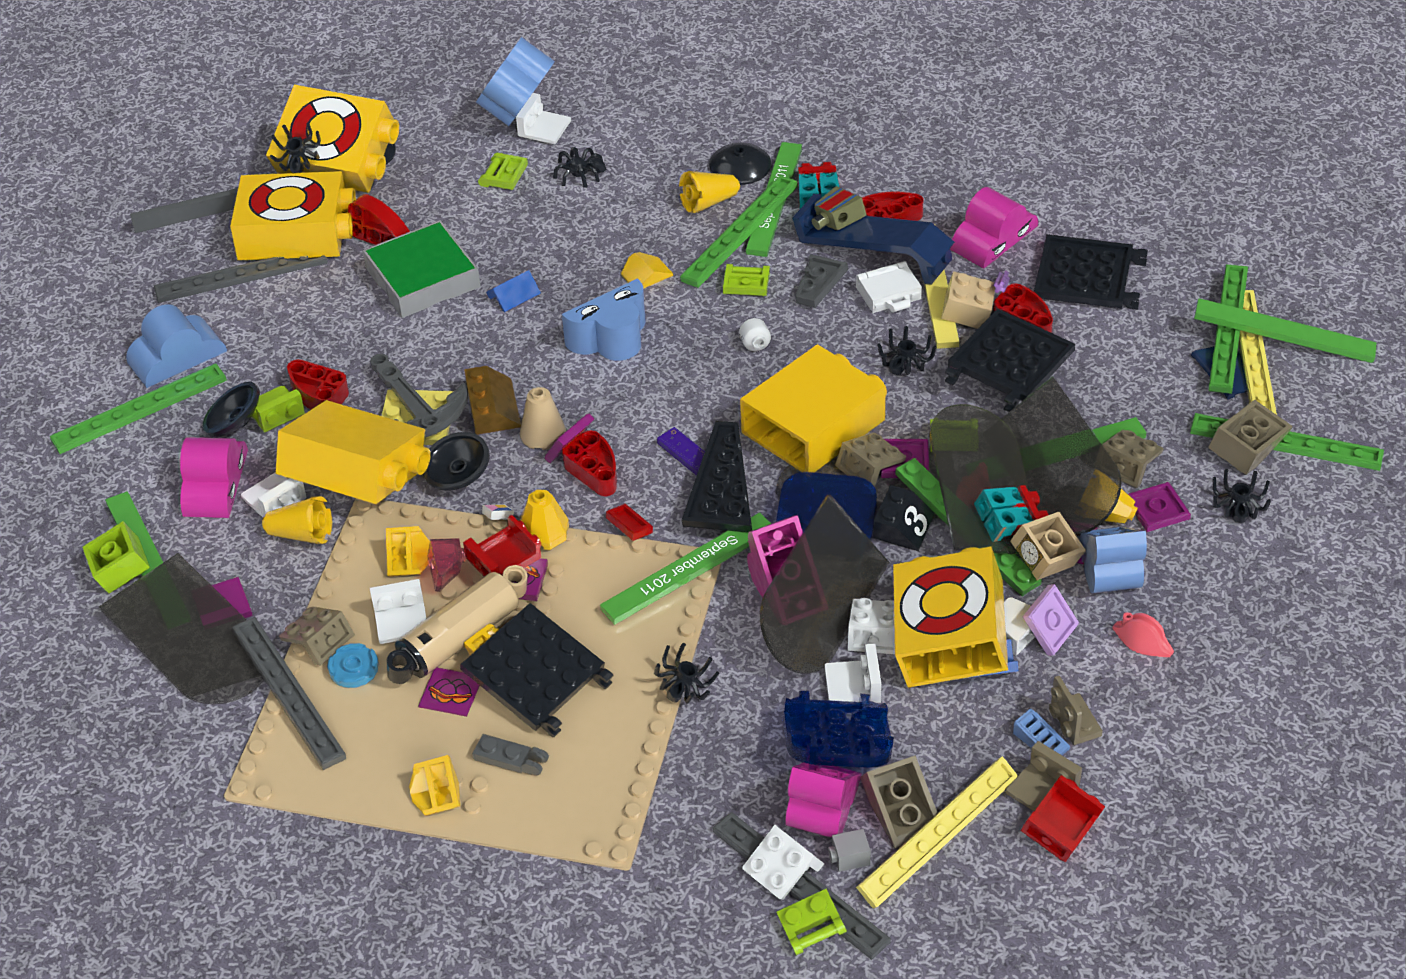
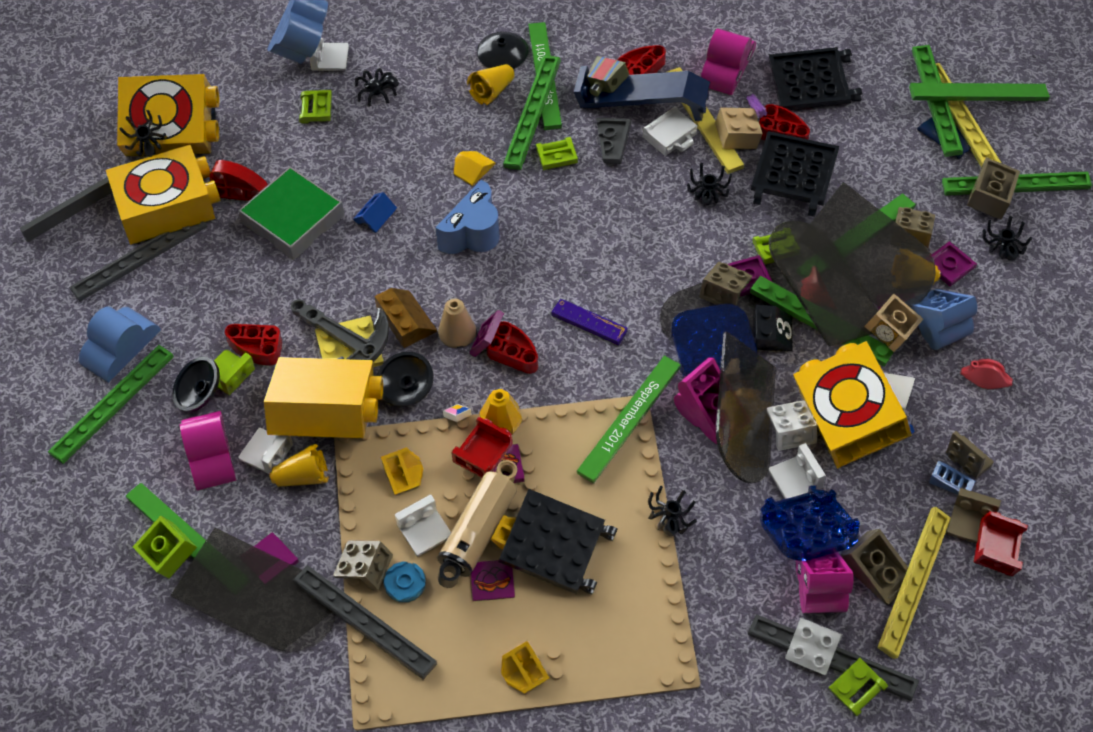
camera: 20 degrees left, 10 degrees up
(445, 561) = (437, 469): clear pink slope -> none
(509, 755) = (566, 621): dark grey hinge -> none
(629, 522) = (564, 391): red tile -> none
(720, 487) = (624, 343): black wing -> none
(754, 334) = (587, 200): white head -> none
(813, 408) = (665, 255): yellow brick -> none
(815, 179) = (573, 54): teal hips -> none
(850, 850) = (859, 618): light grey brick -> none
(1007, 510) = (858, 303): teal hips -> none
(1050, 619) = (920, 382): lavender tile -> none

